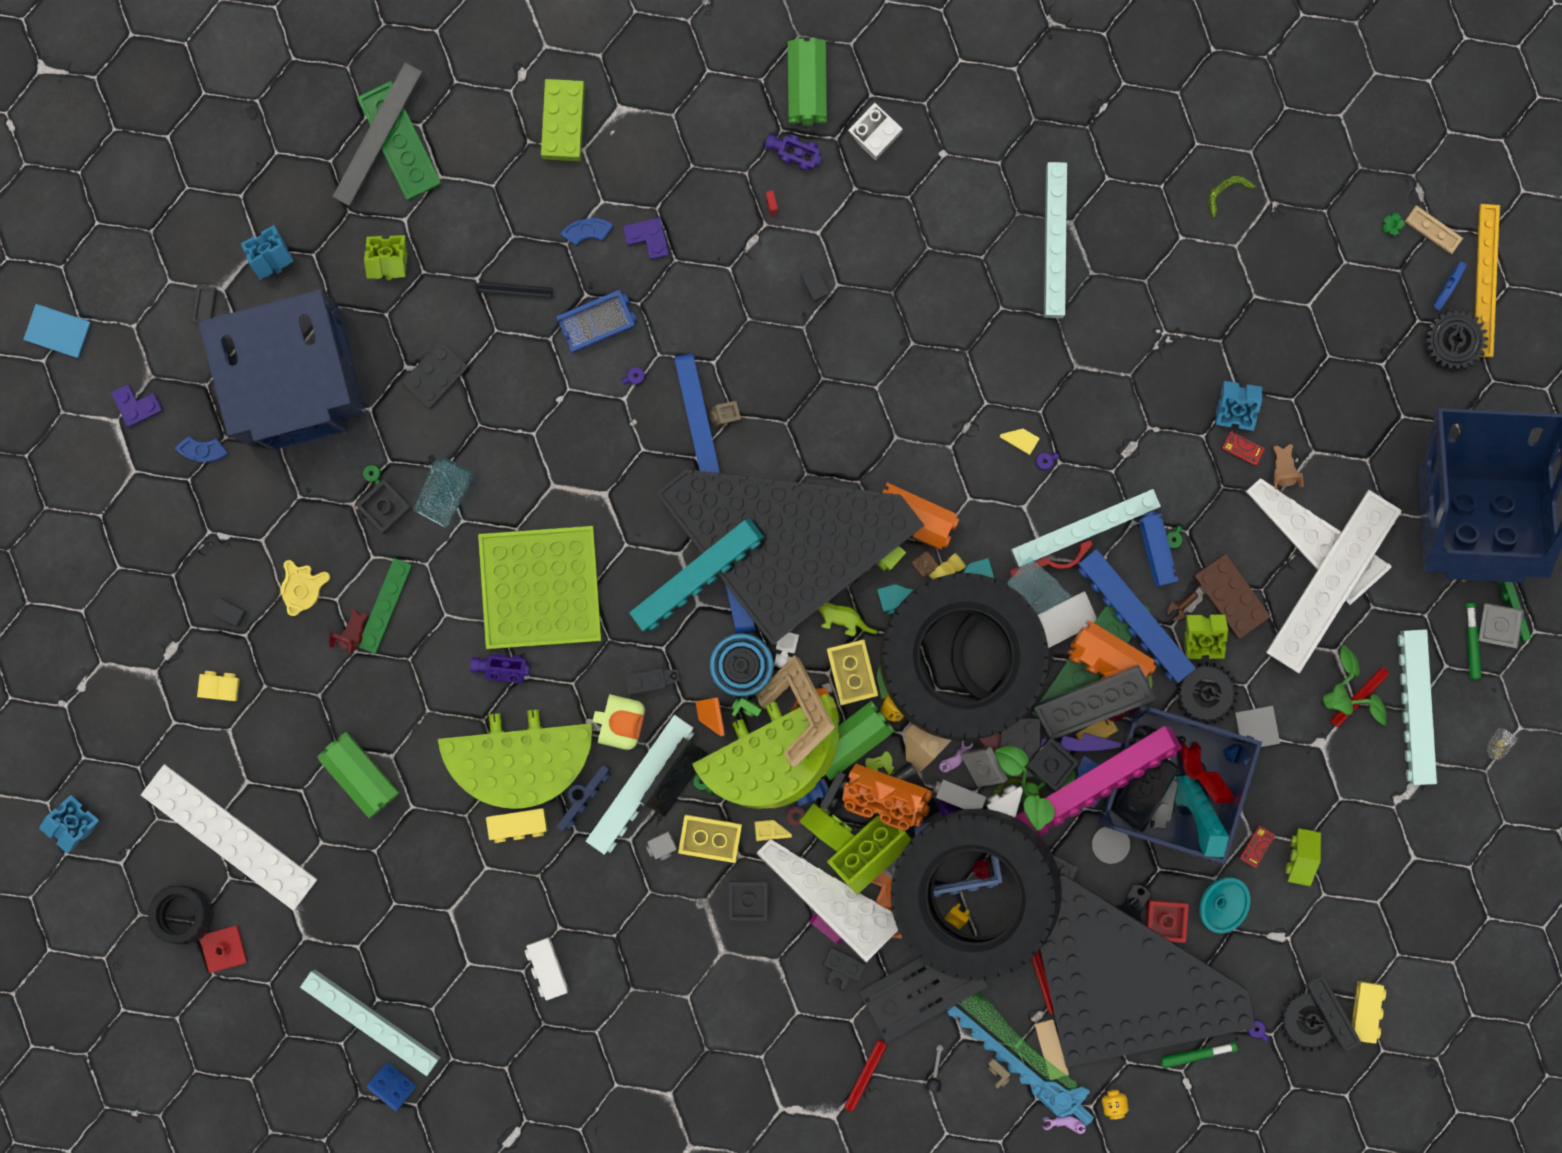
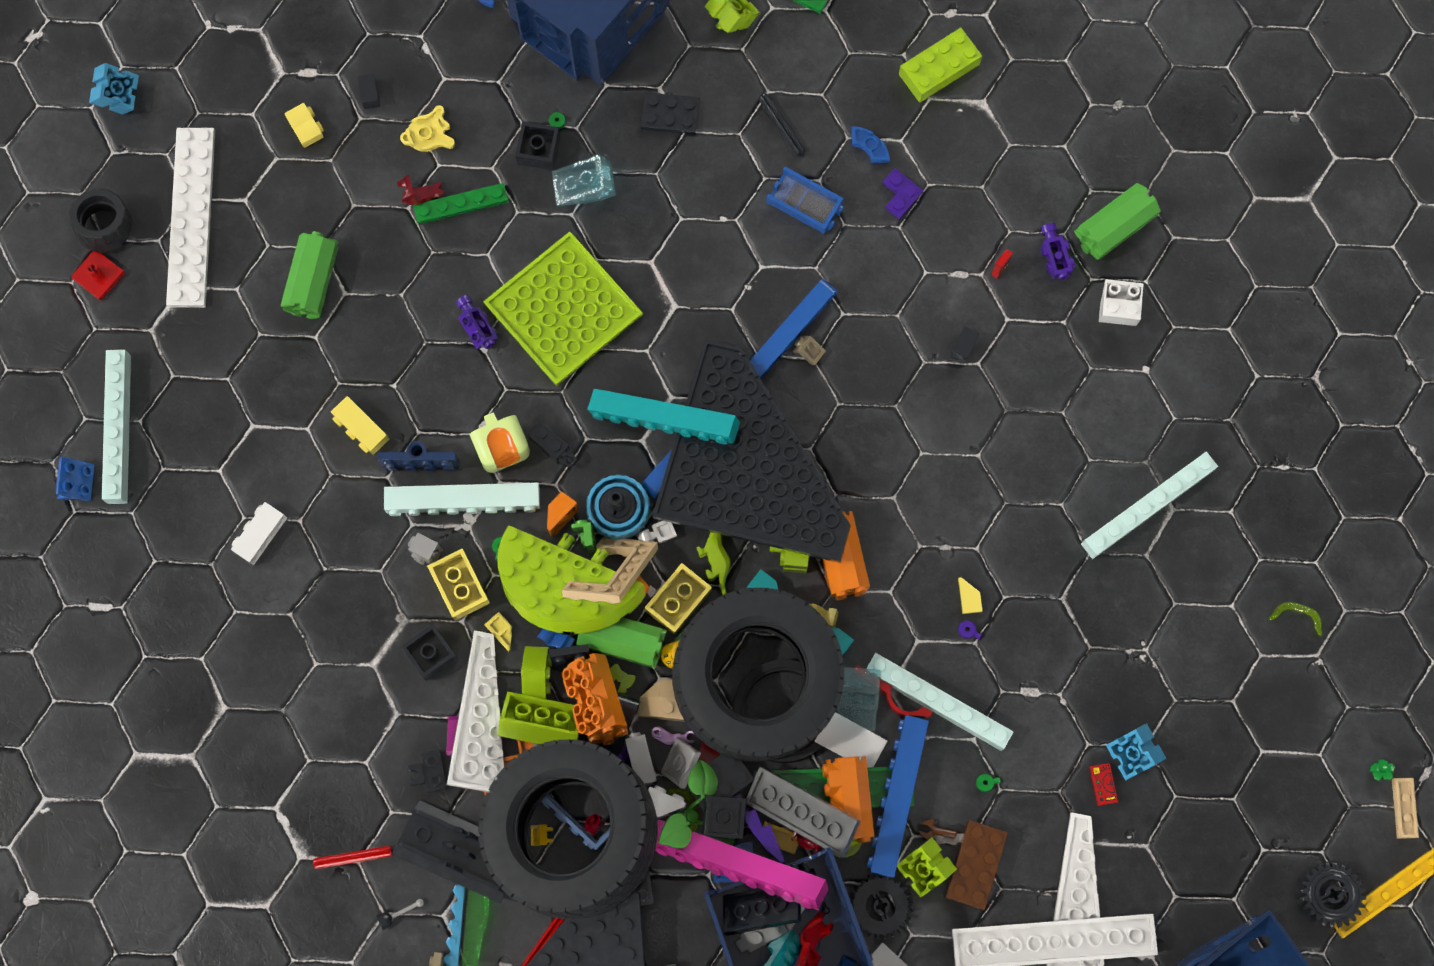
camera: 50 degrees right, 10 degrees down
(518, 766) = (408, 393): lime brick -> none
(630, 376) = (781, 261): dark purple piece -> none
(673, 777) = (486, 518): black plate -> none
(791, 811) = (527, 635): dark red plate -> none
(924, 564) = (810, 593): clear orange tile -> none
(1110, 845) = (694, 920): light grey tile -> none
(1157, 548) = (967, 773): blue door -> none
(1285, 472) = (1111, 834): medium nougat hair -> none
(1450, 285) = (1372, 855): blue tile -> none

